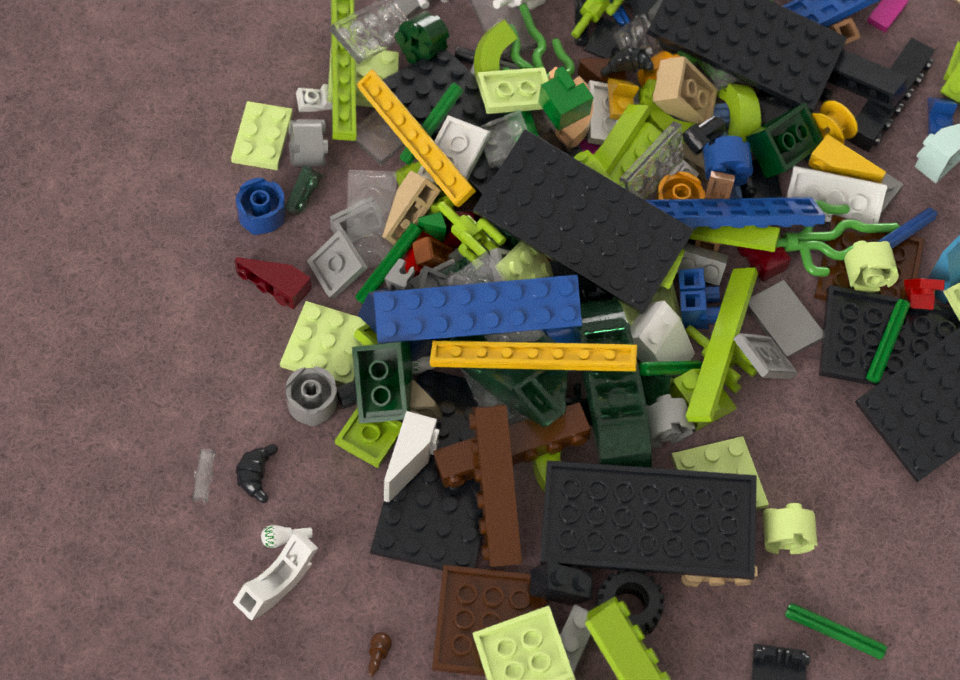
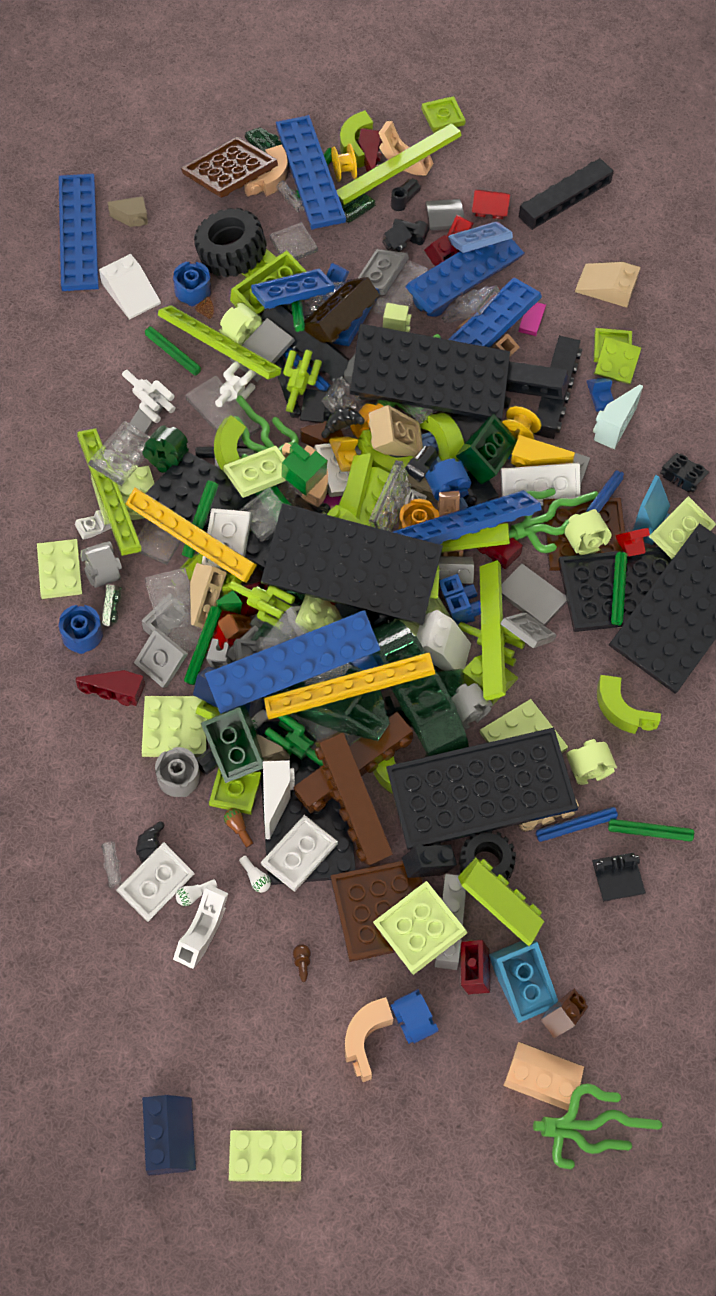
camera: 15 degrees left, 0 degrees up
(244, 509) = (155, 881): none -> white tile
(357, 470) = (234, 819): none -> dark orange piece
(361, 544) = (259, 880): none -> white piece
(416, 528) = (299, 853): none -> white tile
(452, 401) = (295, 740): none -> green plant
(668, 367) = (456, 662): green axle -> none
(749, 596) = (576, 824): none -> blue axle
(842, 483) = (618, 711): none -> lime arch

